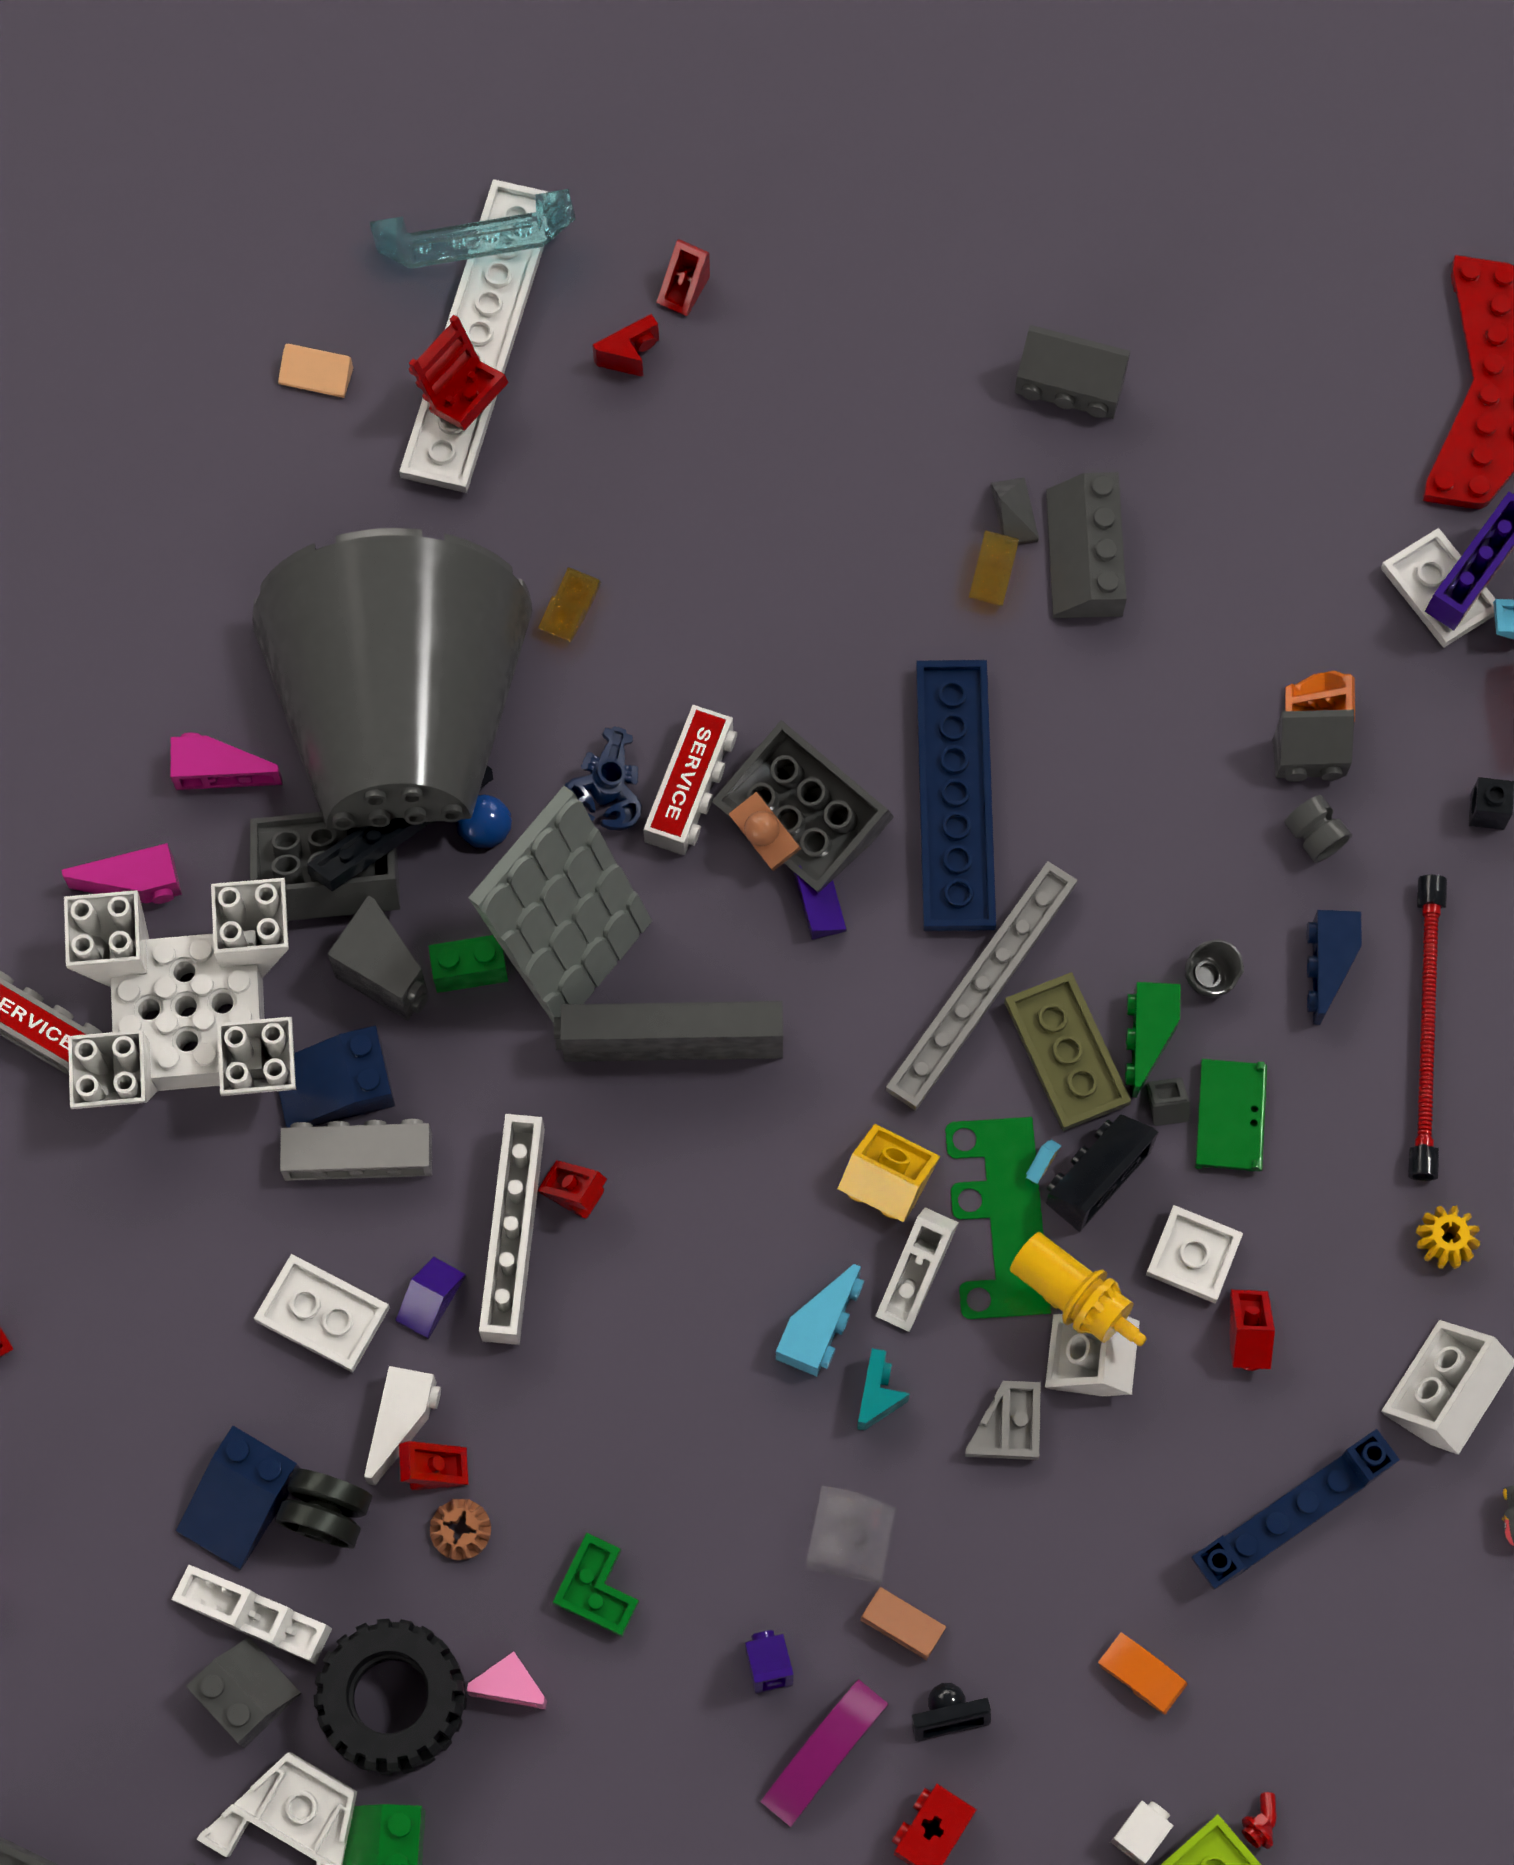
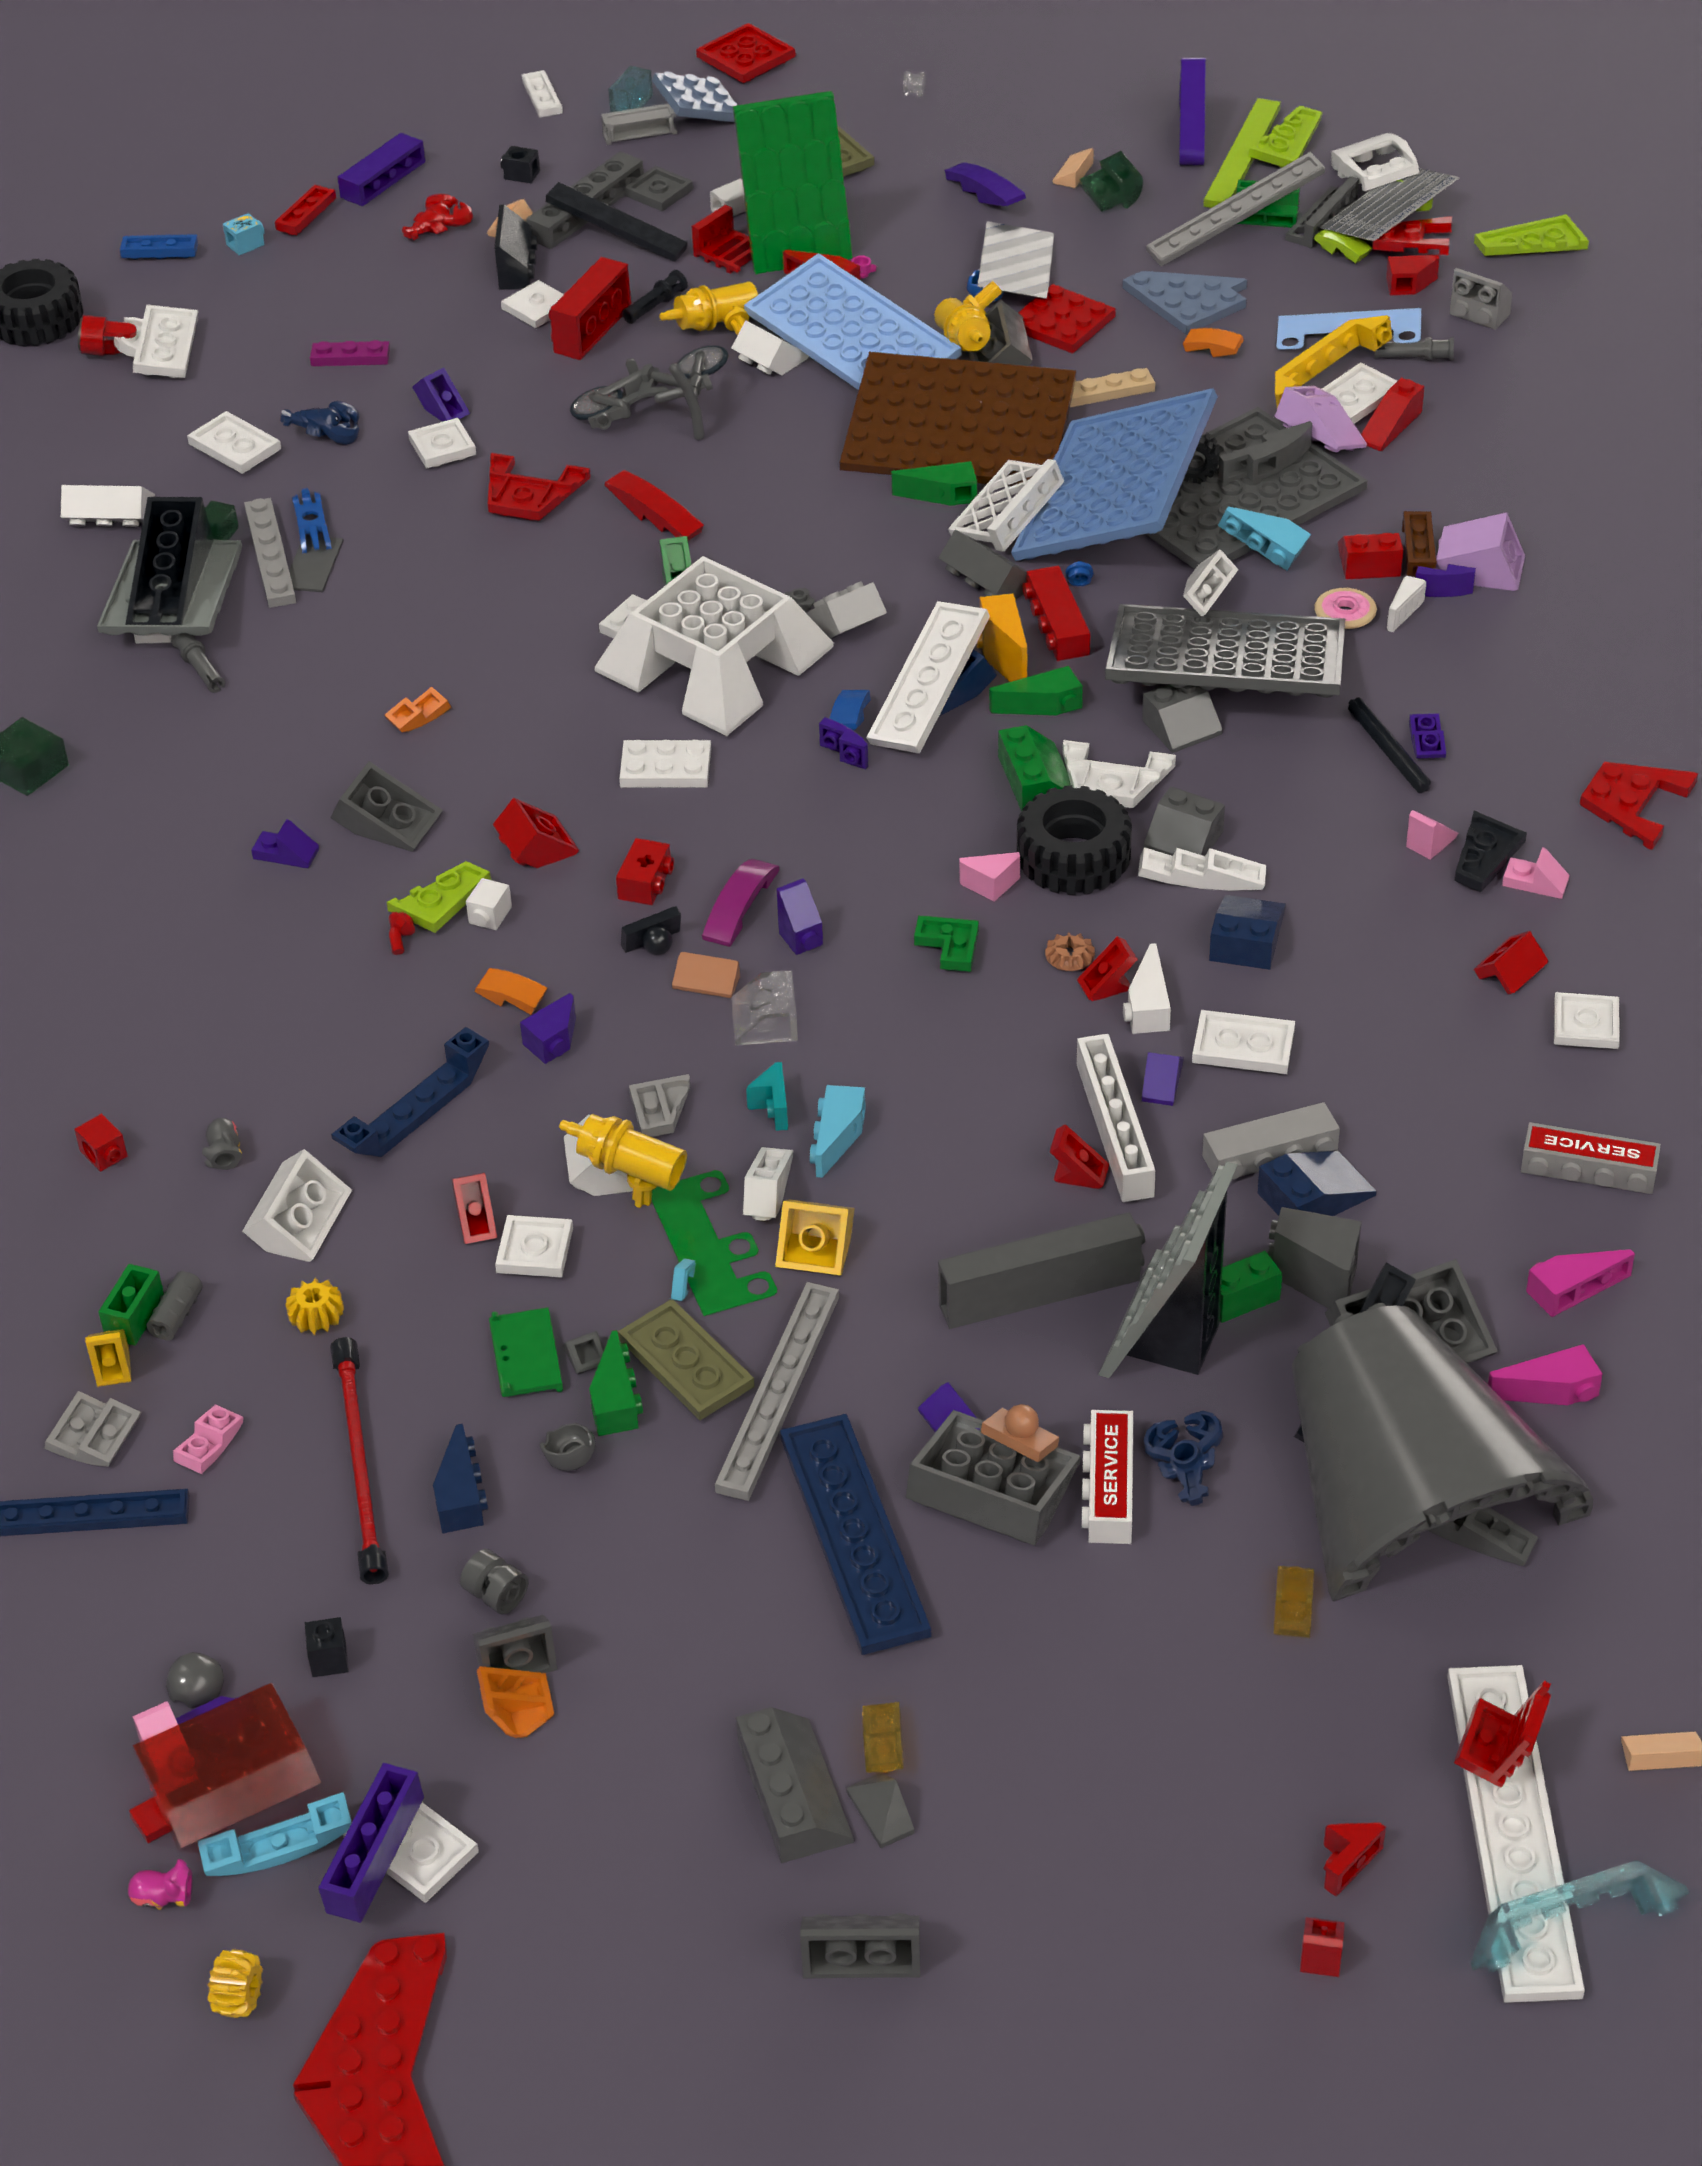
camera: 165 degrees right, 25 degrees down
(141, 1056) = (1472, 1188): white slope -> none
(324, 1508) = (1176, 917): pearl dark grey wheel -> none
(488, 824) = (1280, 1403): blue hair -> none
(1100, 1169) = (628, 1269): black slope -> none
(1109, 1580) = (550, 1029): none -> dark purple slope

